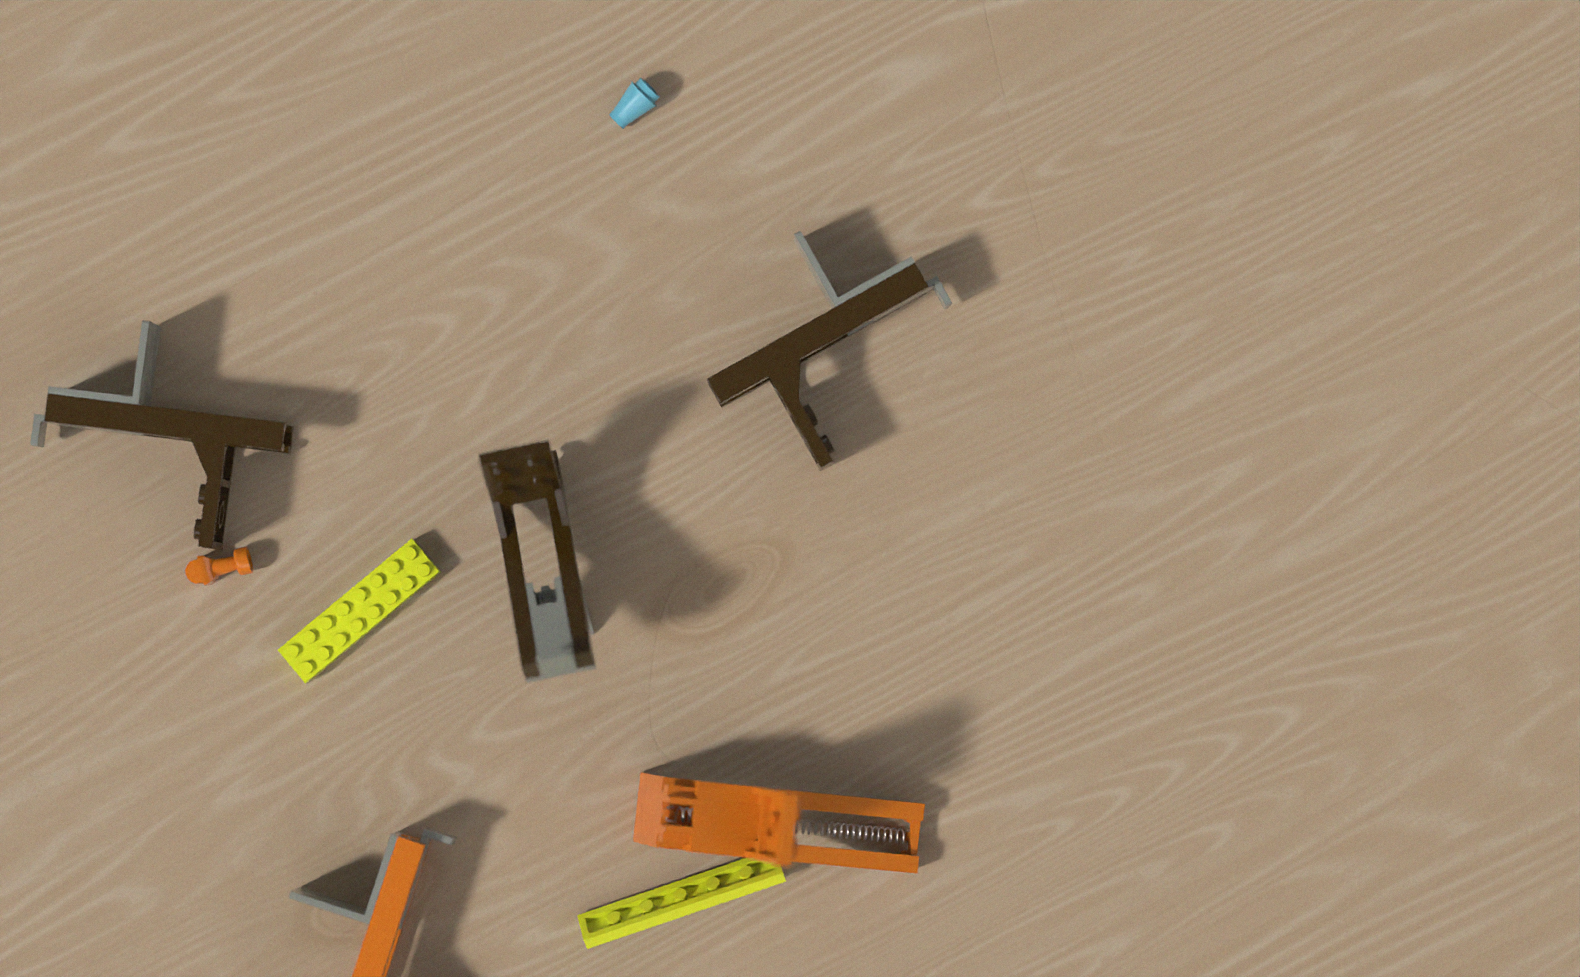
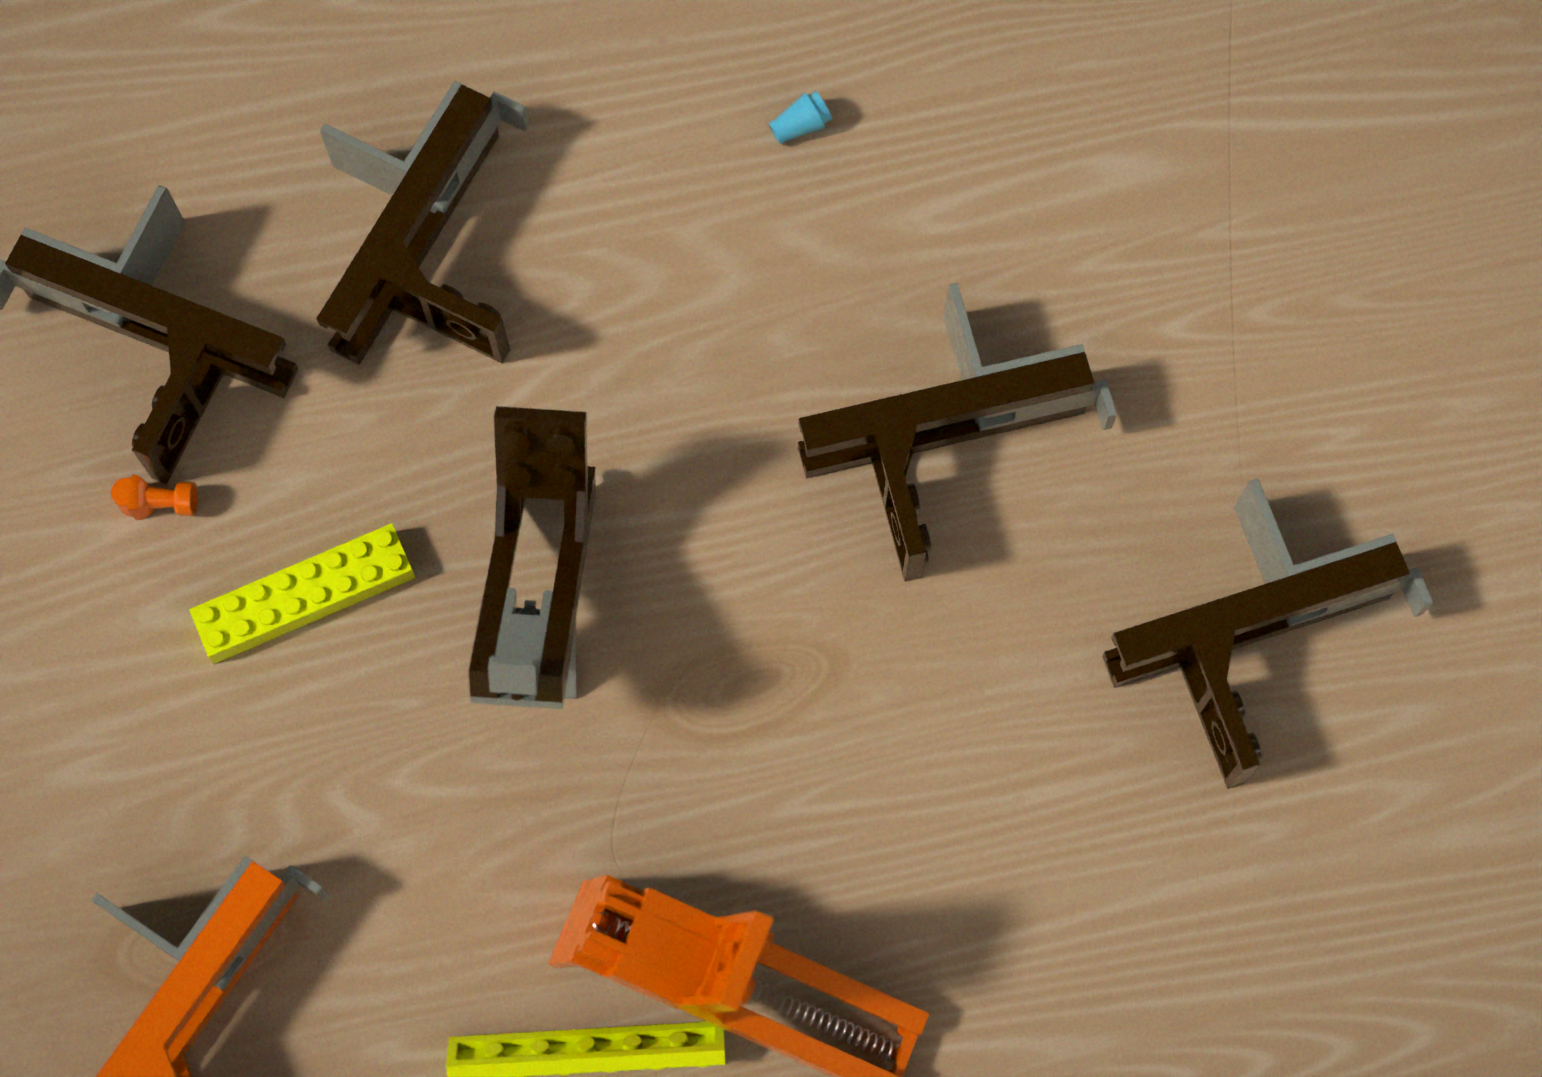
camera: 15 degrees right, 15 degrees down
(354, 254) = (423, 197): none -> dark brown piece
(1063, 461) = (1291, 598): none -> dark brown piece

